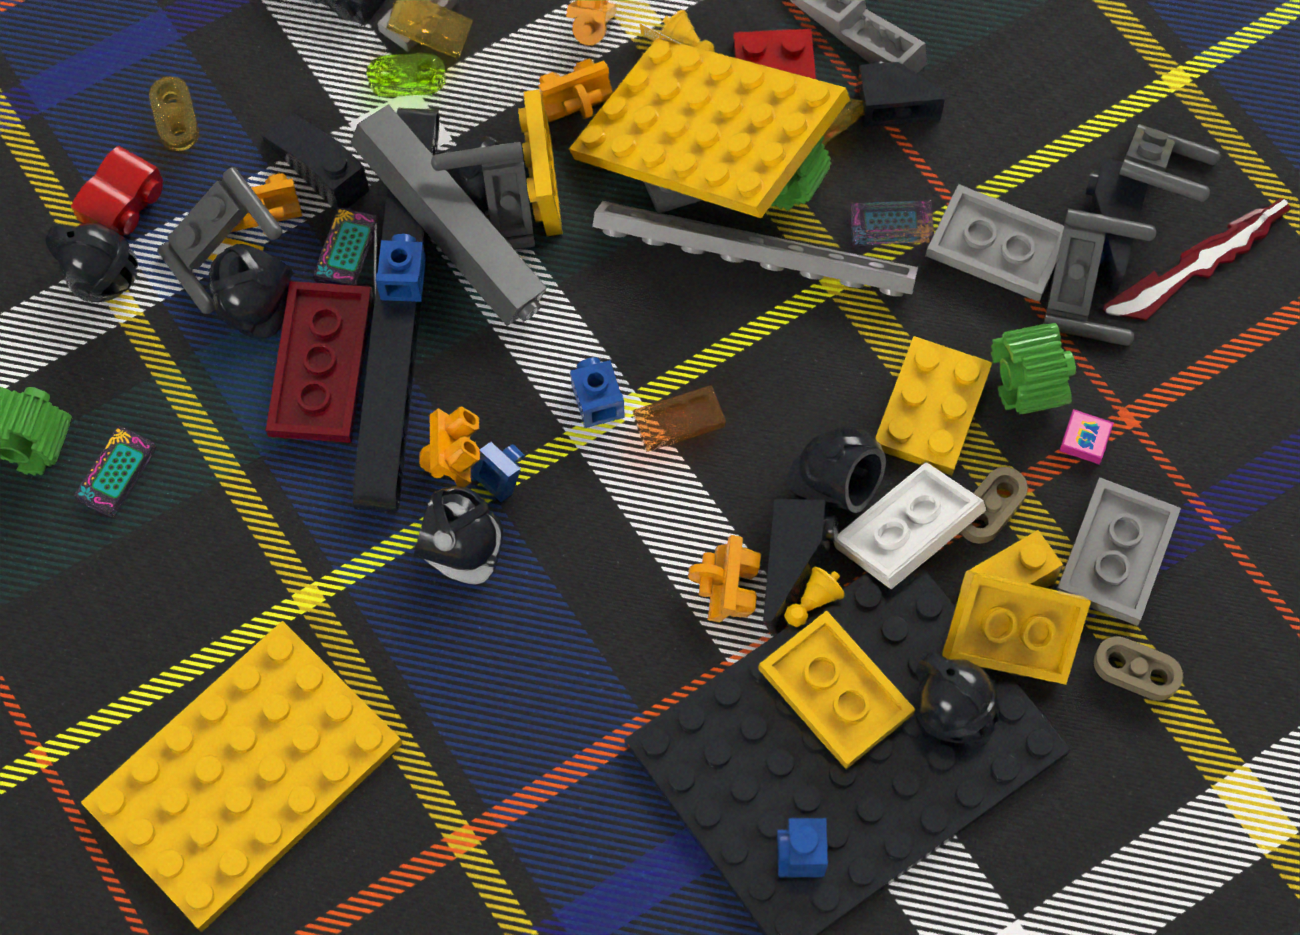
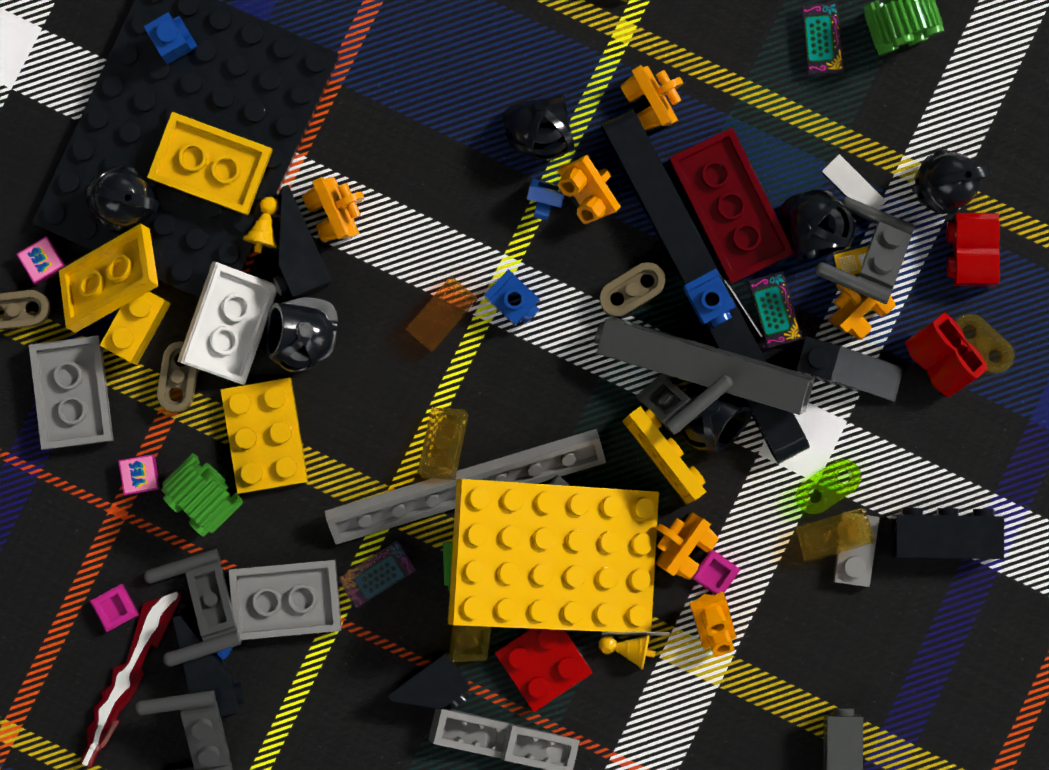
camera: 155 degrees right, 20 degrees up
(187, 324) = (852, 183): none -> white sticker
(214, 114) = (946, 355): none -> red brick
(327, 488) = (645, 84): none -> light orange hips
(472, 337) = (632, 290): none -> dark tan plate
(560, 55) = (715, 572): none -> dark pink tile
(753, 293) = (443, 443): none -> clear yellow plate
(1080, 707) = (41, 260): none -> tile
(1179, 328) = (114, 608): none -> dark pink tile

